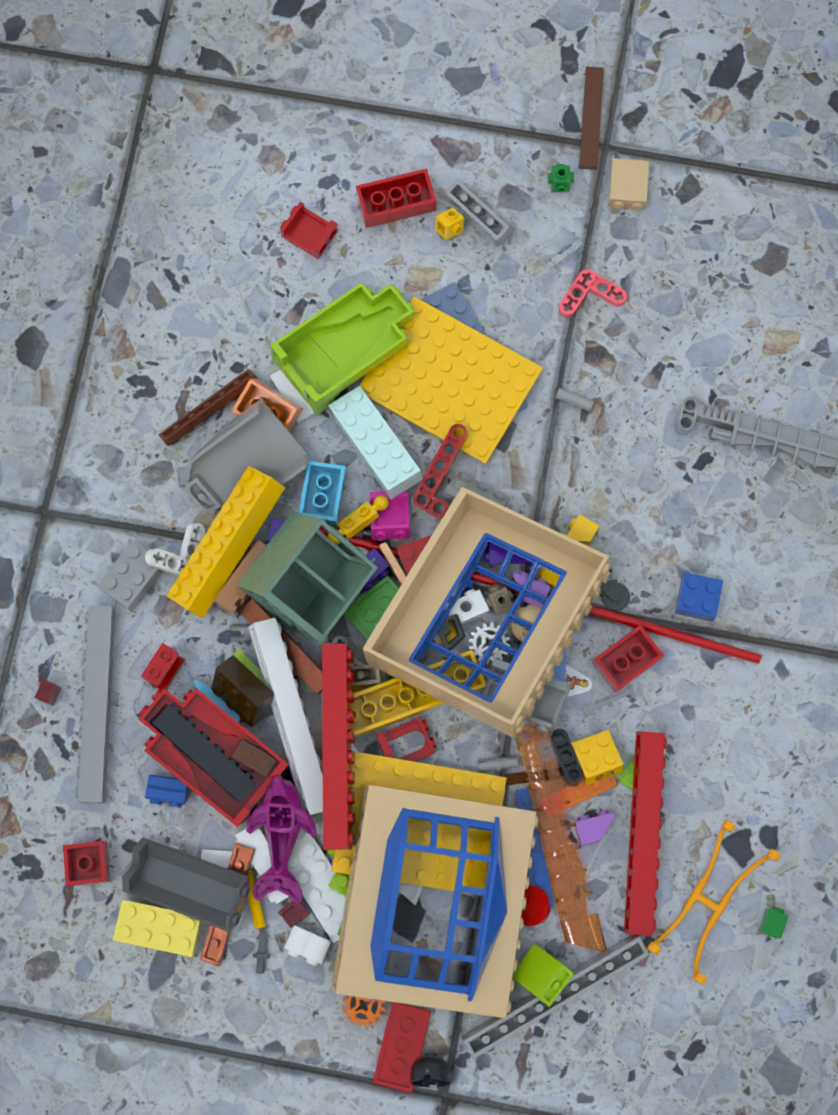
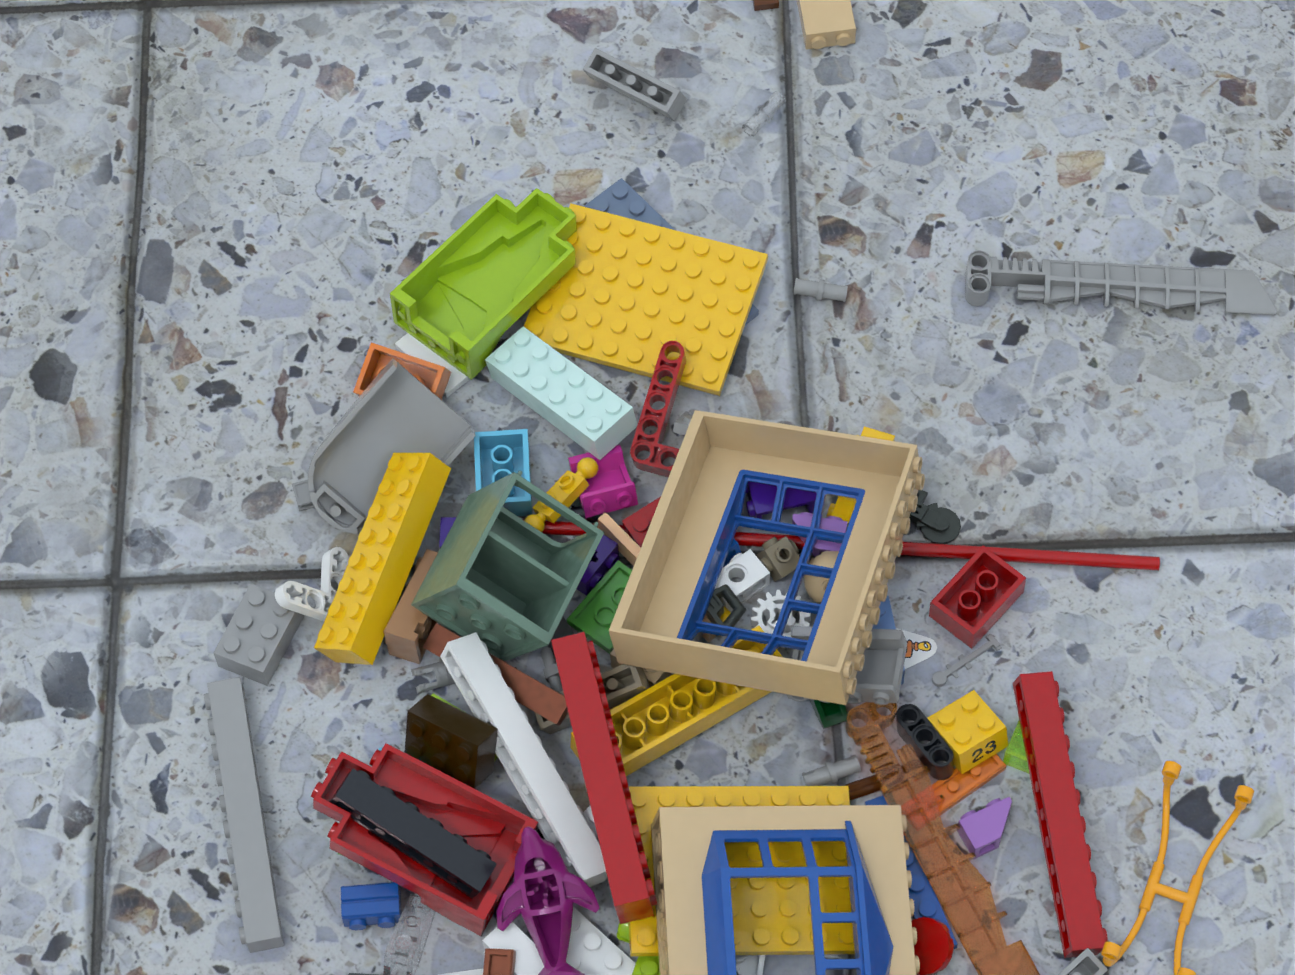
camera: 10 degrees left, 15 degrees down
(47, 692) = (170, 811): dark red panel -> none
(163, 667) = (328, 736): red panel -> none
(206, 408) = (312, 406): copper plate -> none
(253, 758) = (486, 828): reddish brown brick -> none
(308, 230) = (407, 155): red panel -> none
(396, 198) = (517, 90): red brick -> none
(411, 726) = (708, 746): red panel -> none
(449, 223) = (597, 107): yellow brick -> none
(560, 178) = (733, 25): green brick -> none
(591, 286) = (808, 148): coral beam -> none
(698, 597) = (1054, 500): blue brick -> none
(773, 922) = (1270, 898): green brick -> none

